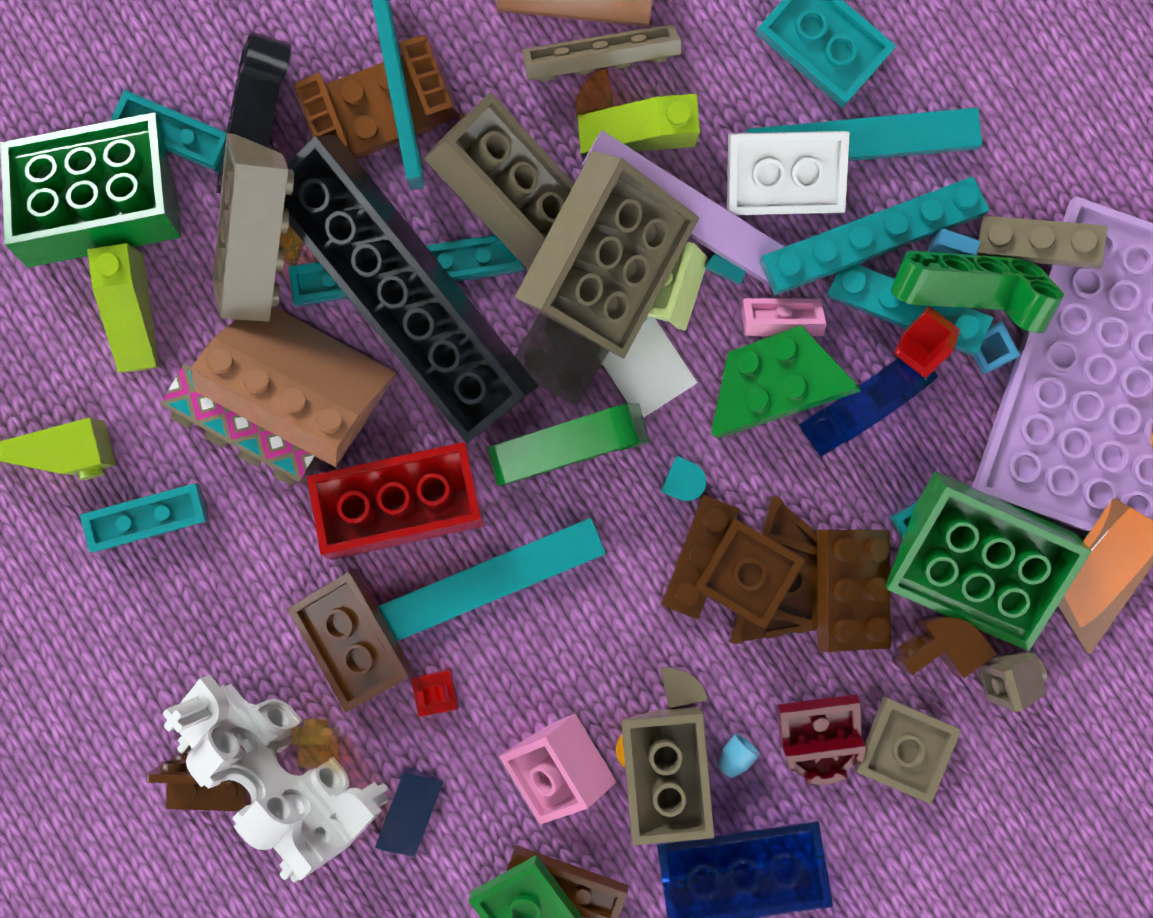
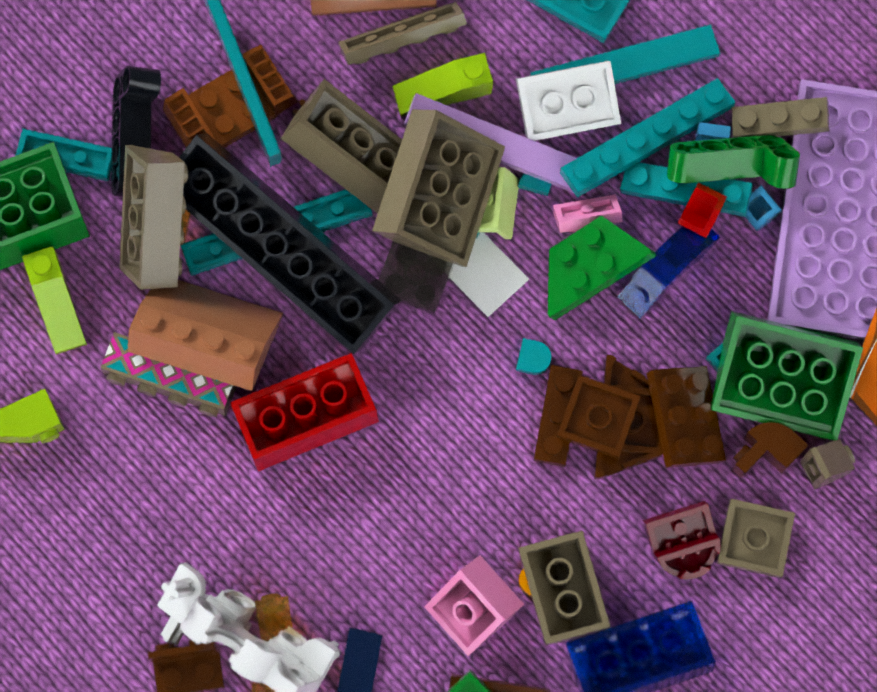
camera: 10 degrees left, 10 degrees down
(144, 518) = (99, 464): teal plate -> none
(350, 640) = (286, 531): reddish brown plate -> none
(434, 692) = (362, 564): red tile -> none
(492, 579) = (389, 466): teal tile -> none
(568, 443) = (434, 341): green beam -> none
(594, 94) = (403, 67): clear orange tile -> none
(681, 687) = (563, 521): dark tan tile -> none
(737, 756) = (619, 569): medium azure hose -> none

